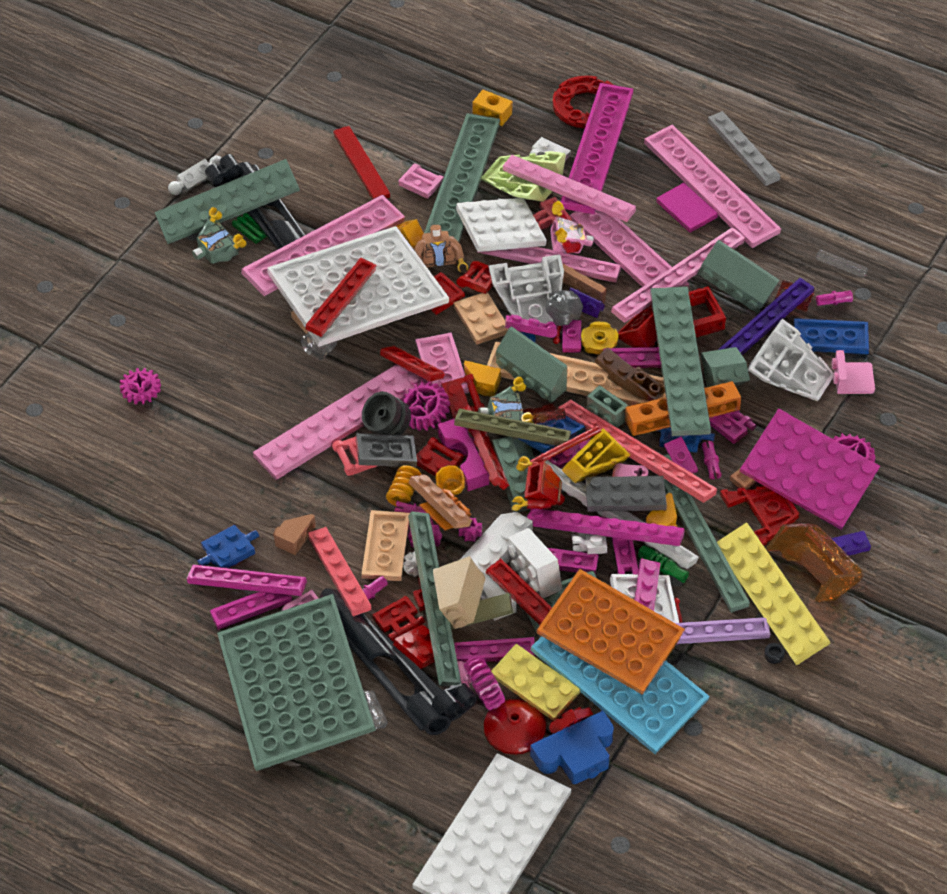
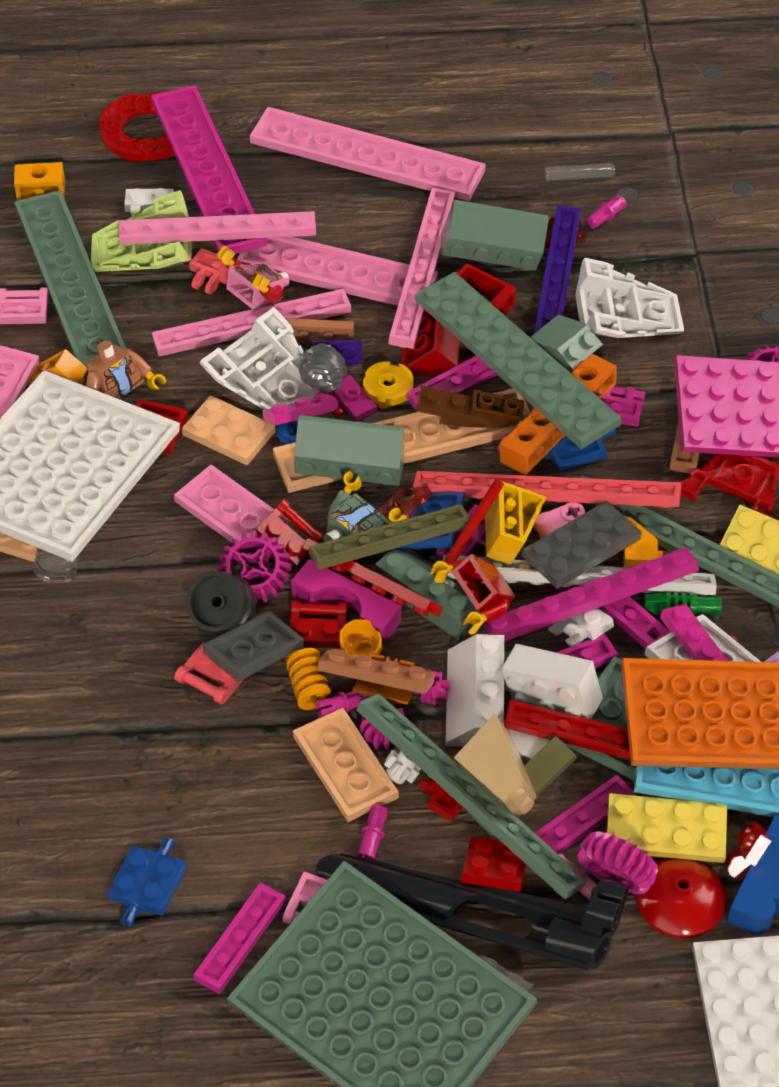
camera: 35 degrees left, 0 degrees up
(247, 580) = (208, 908): dark pink tile -> none
(294, 533) = (218, 814): nougat slope -> none
(330, 424) = (152, 647): bright pink plate -> none
(339, 571) = (318, 828): coral plate -> none
(340, 297) = (56, 486): red plate -> none
(396, 613) = (428, 842): red plate -> none
(412, 363) = (196, 524): red tile -> none
(481, 282) = (197, 379): red plate -> none
(486, 377) = (298, 492): light orange slope -> none
(500, 224) = (166, 309): white plate -> none
(606, 406) = (469, 455): sand green brick -> none
(680, 454) = (595, 467): dark pink plate -> none
(687, 207) = (359, 191): dark pink tile -> none
(711, 460) = (631, 457): dark pink pin -> none
(744, 148) = (366, 98): light grey plate -> none
(834, 335) = (642, 251): blue tile -> none
(852, 377) = (699, 286): bright pink bracket -> none

